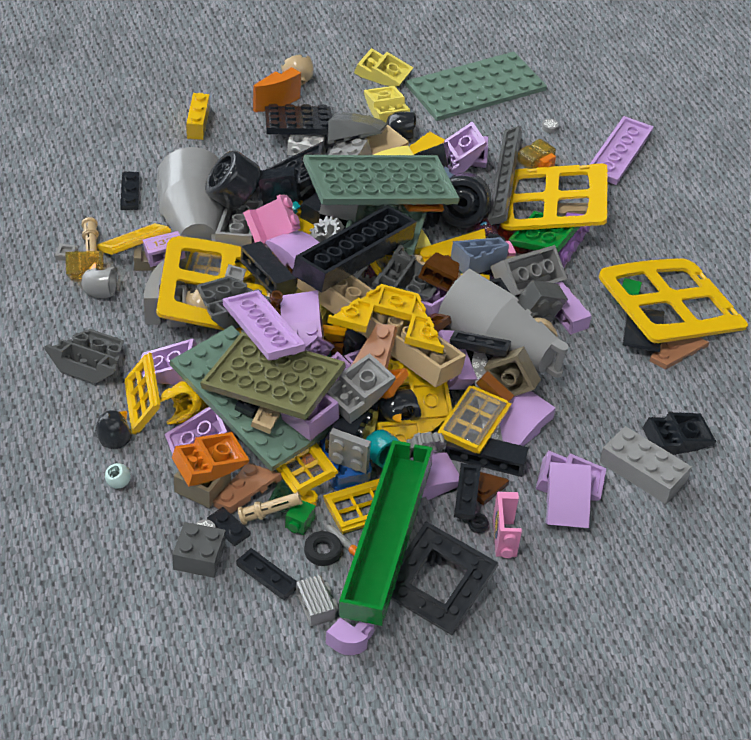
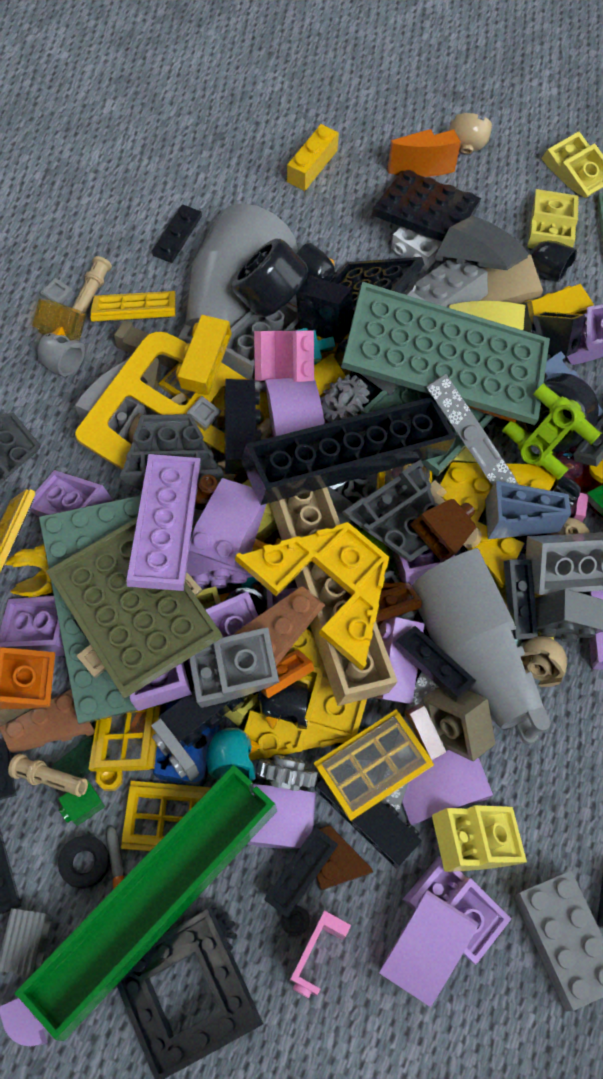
camera: 30 degrees right, 20 degrees up
(156, 247) = (141, 327): lavender brick -> none
(216, 238) = (204, 354): none -> yellow brick
(424, 221) = (470, 430): none -> light grey piece
(469, 205) = (551, 431): none -> lime piece
(560, 436) = (478, 838): none -> light yellow slope

